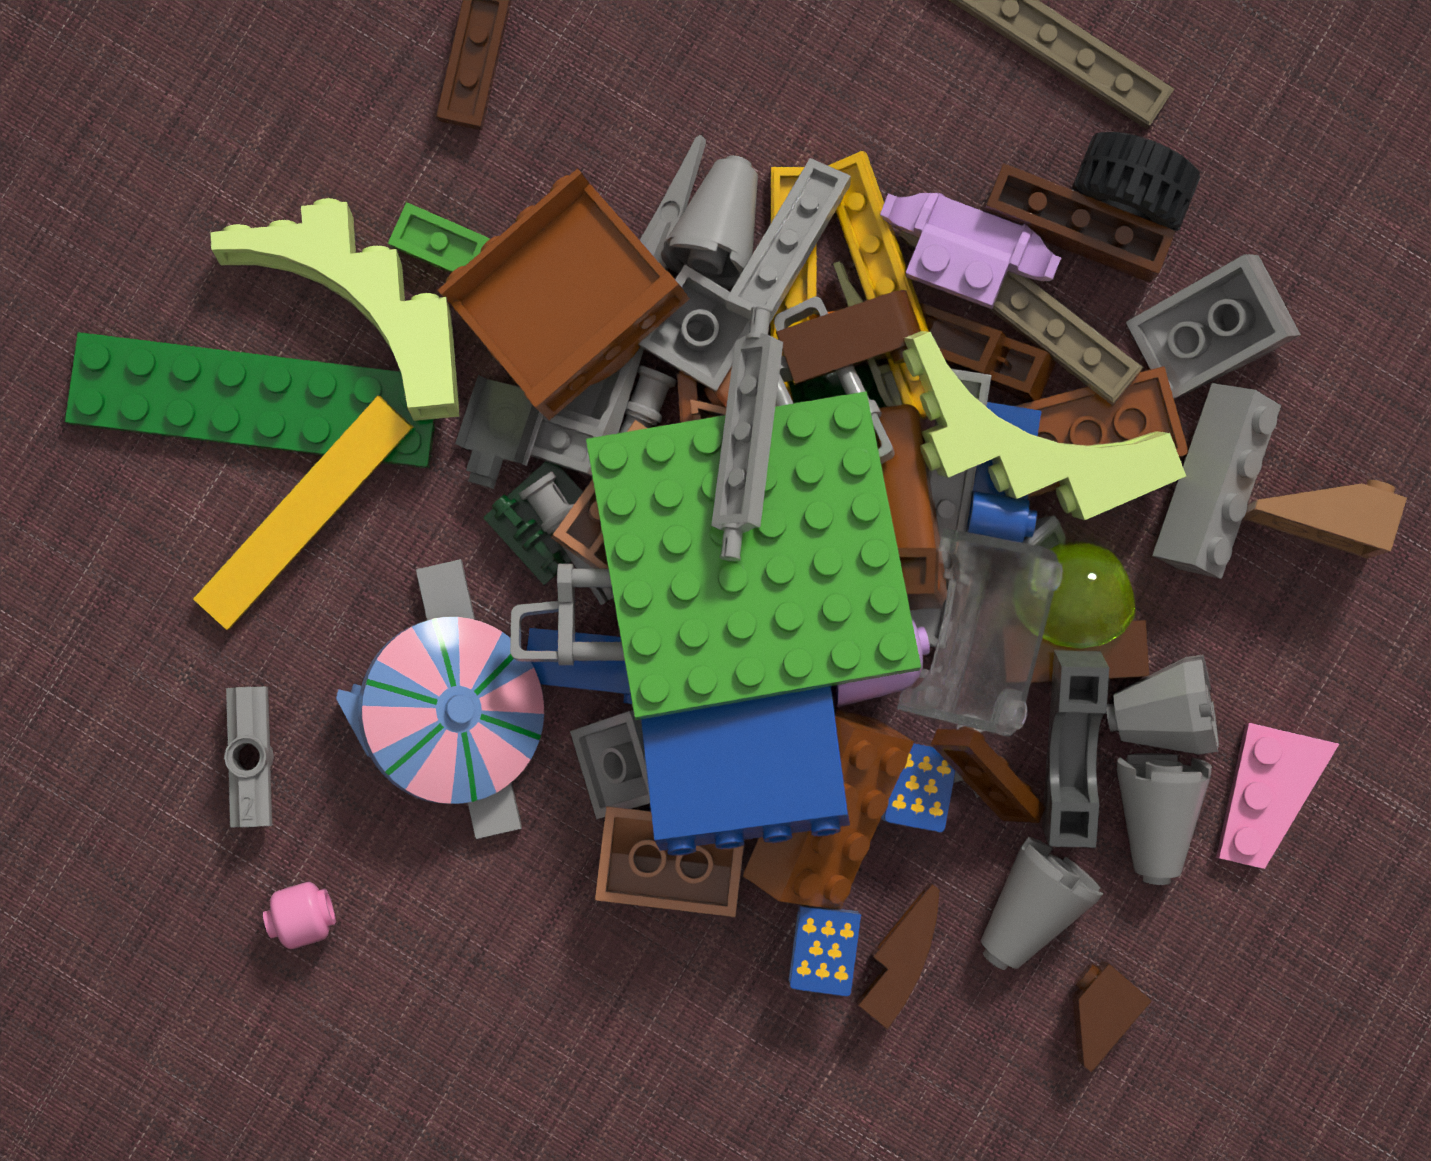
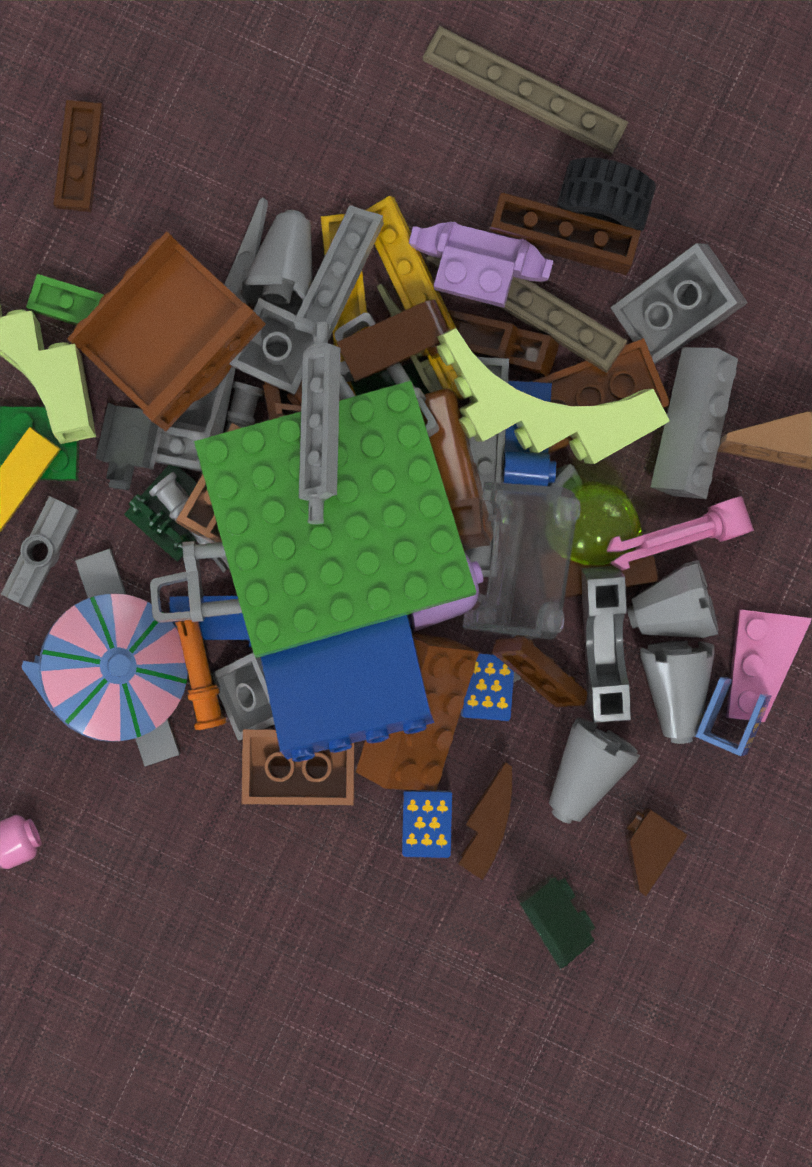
camera: 10 degrees left, 0 degrees up
(356, 581) = (28, 574): none -> light grey piece
(559, 751) = (202, 691): none -> orange pin
(974, 1089) = (556, 919): none -> clear green slope
(1187, 871) = (711, 715): none -> medium blue piece
(1237, 609) = (721, 522): none -> bright pink piece

